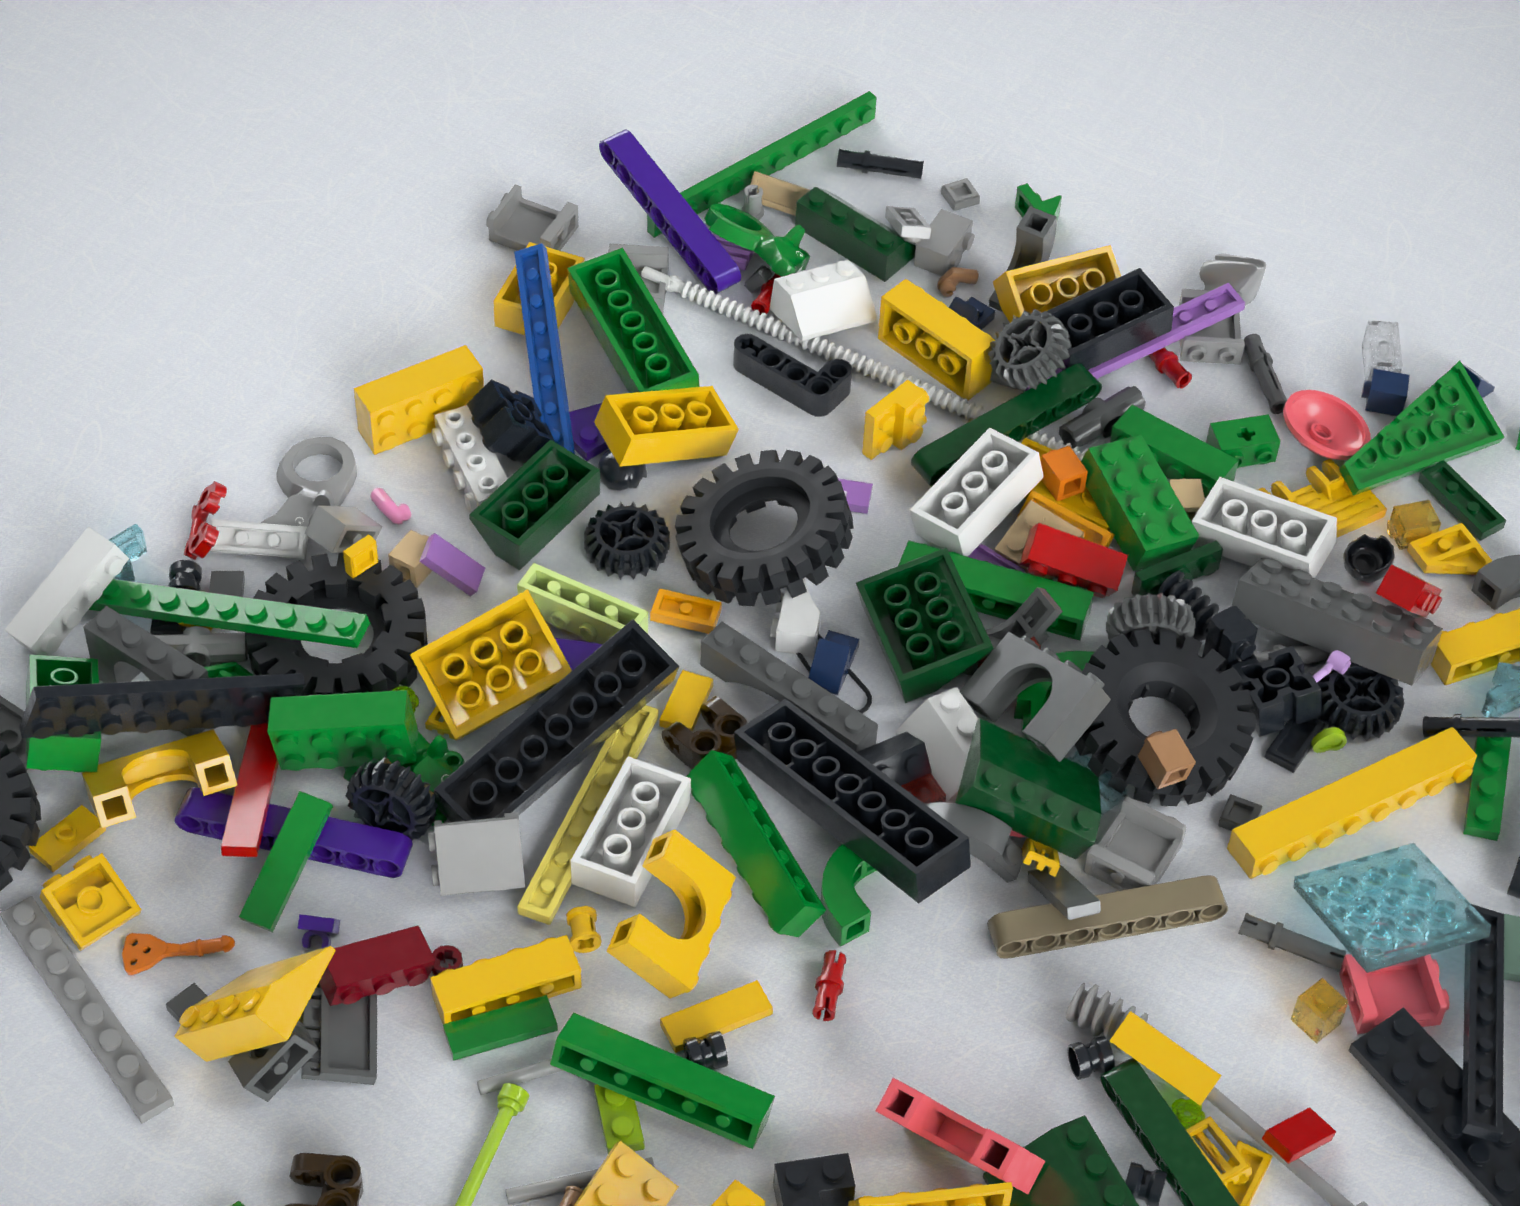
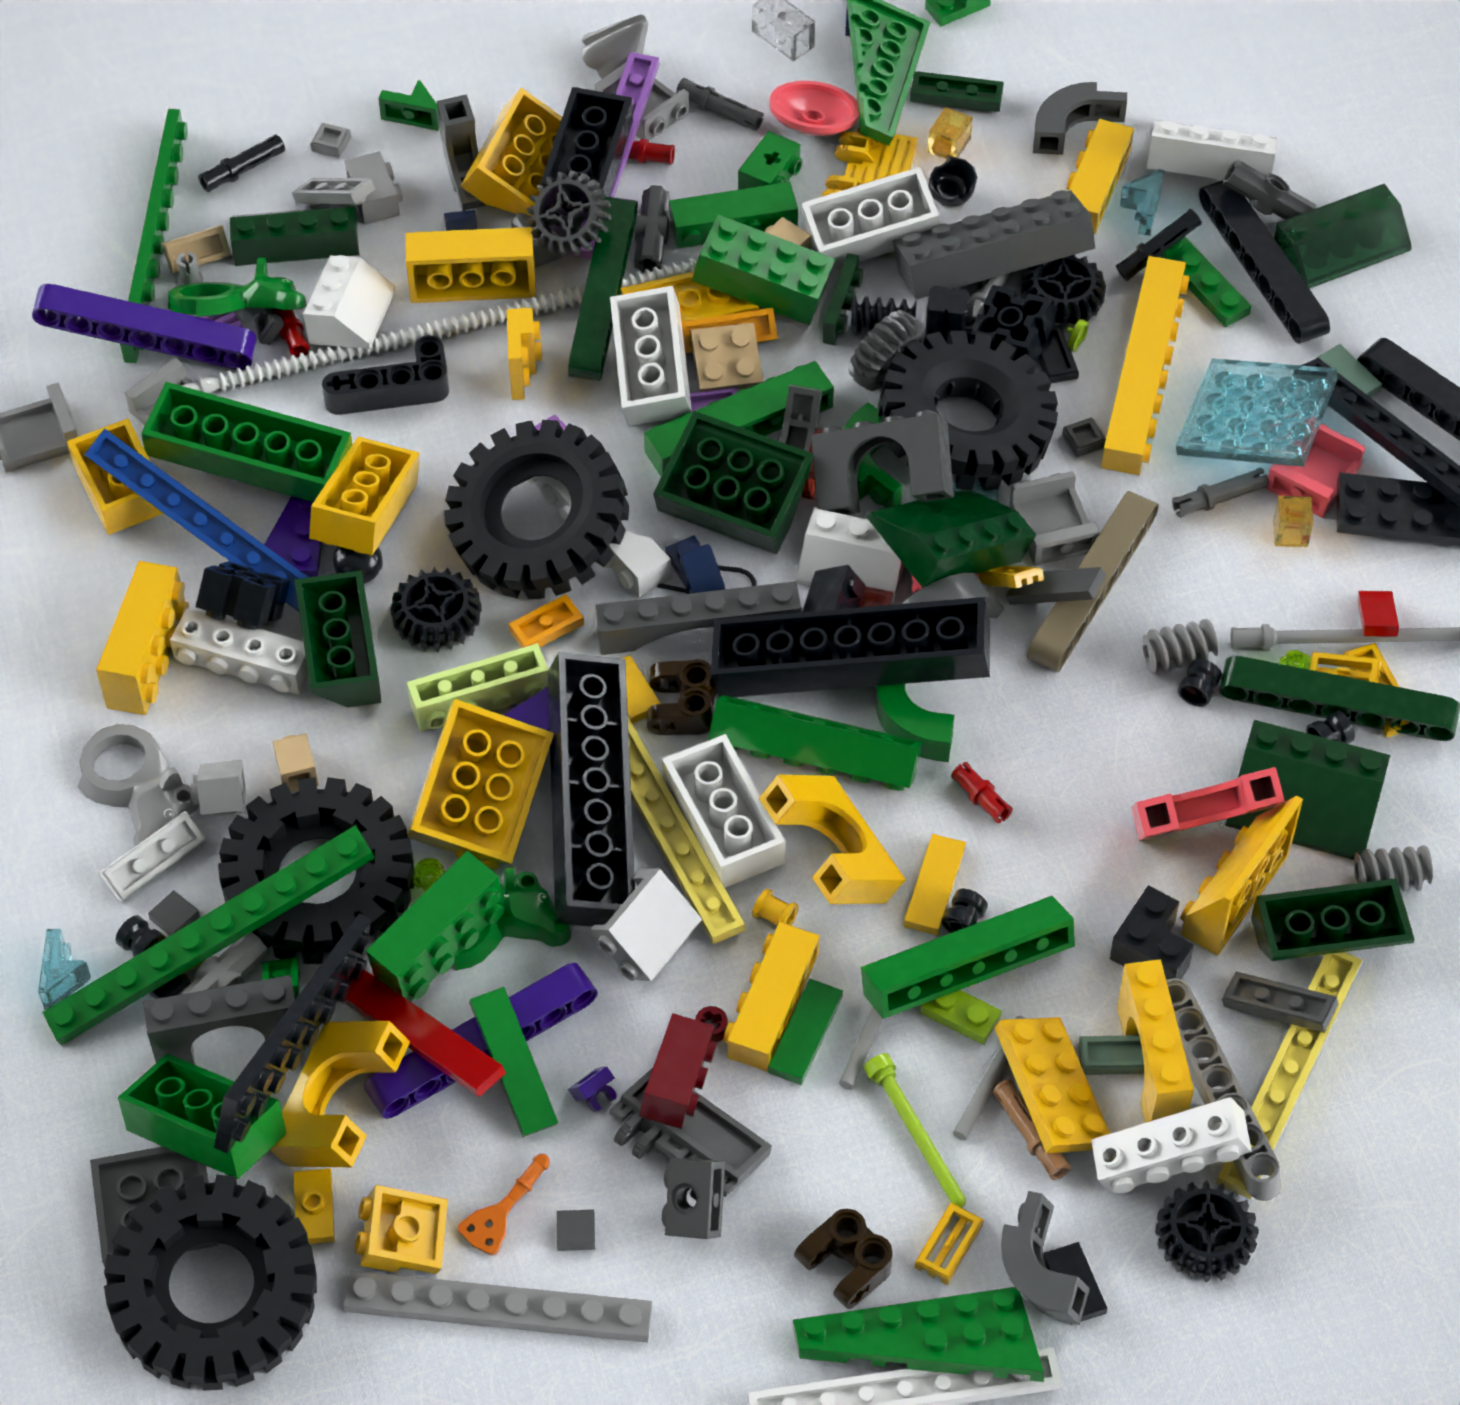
camera: 45 degrees left, 5 degrees up
(67, 593) = (75, 1028): white brick -> none
(203, 535) = (116, 889): red helmet -> none
(253, 1008) = (647, 1171): yellow slope -> none
(360, 556) = (277, 790): yellow tile -> none
(386, 505) = (229, 742): bright pink arm -> none
(392, 798) = (536, 944): black gear -> none
(452, 564) = (335, 740): medium lavender tile -> none
(955, 275) = (411, 215): medium nougat arm -> none
(1063, 473) = (691, 289): orange brick -> none
(1073, 560) = (774, 349): red brick -> none
(1165, 1058) = (1252, 636): yellow tile -> none
(1166, 758) = (1021, 431): medium nougat brick -> none
(1338, 661) = (1032, 271): lavender hand -> none
(1385, 392) = (818, 51): dark blue brick -> none
(1410, 592) = (1020, 182): red brick -> none
(1449, 552) = (995, 135): yellow wing -> none

